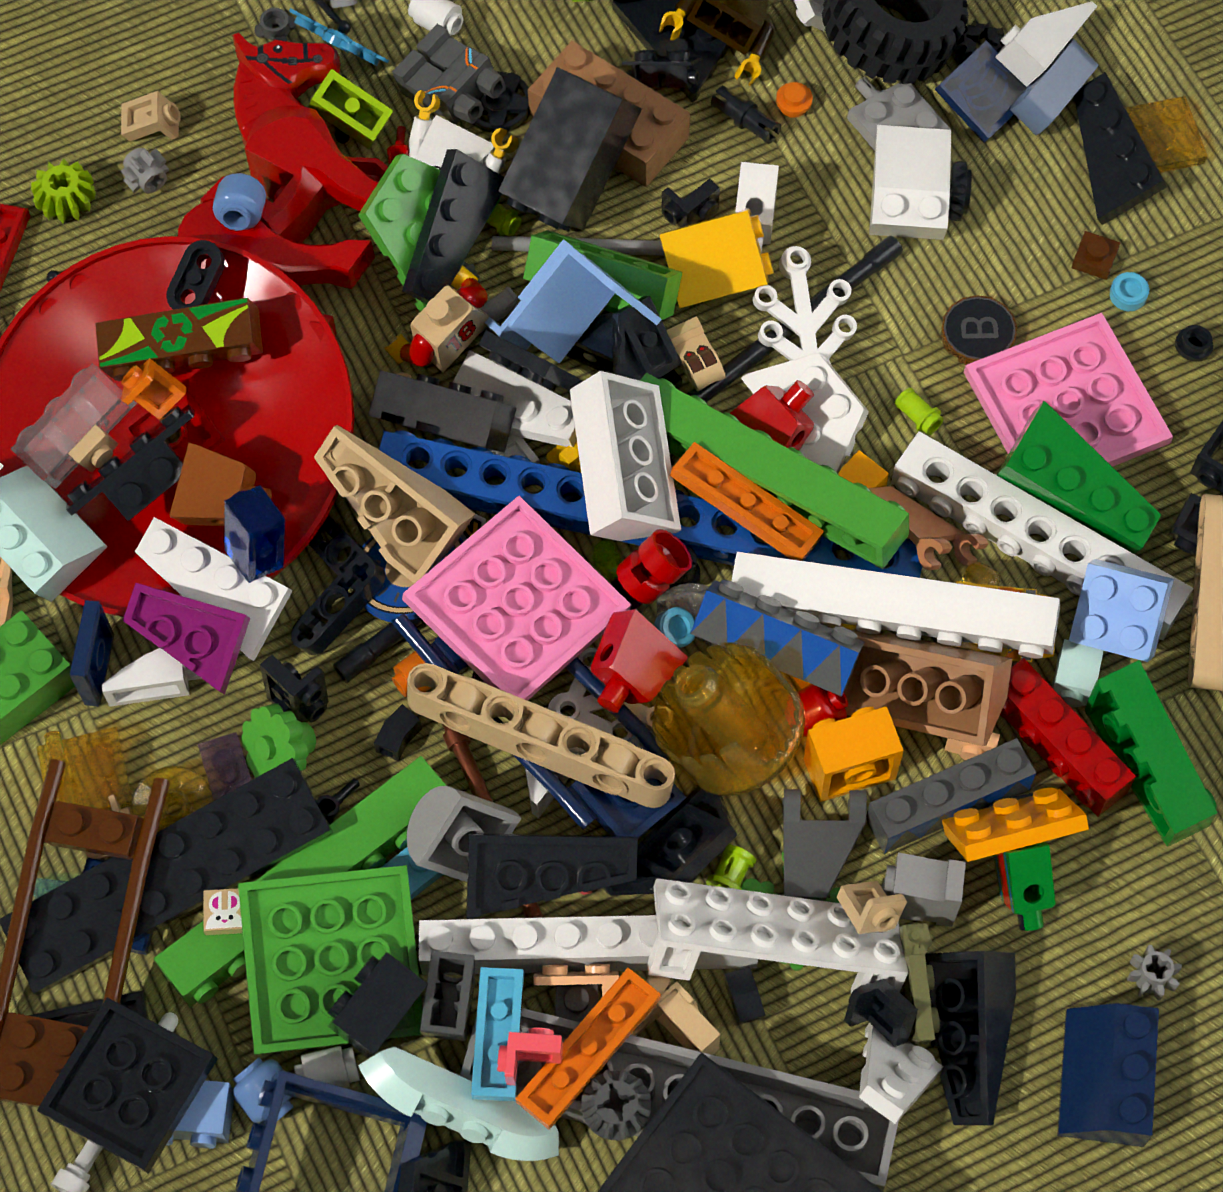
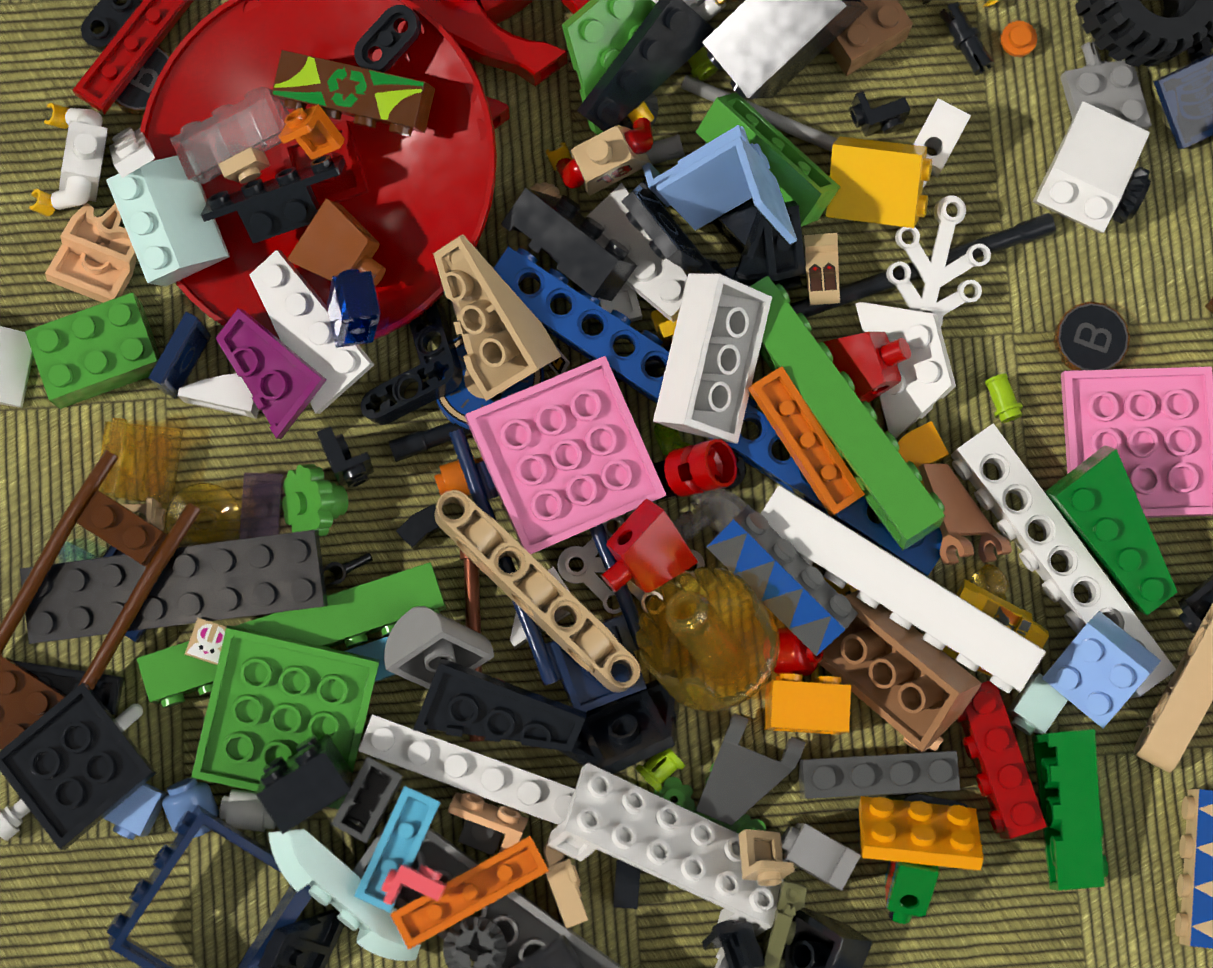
camera: 15 degrees right, 15 degrees up
(676, 626) = (697, 530): medium azure tile -> none

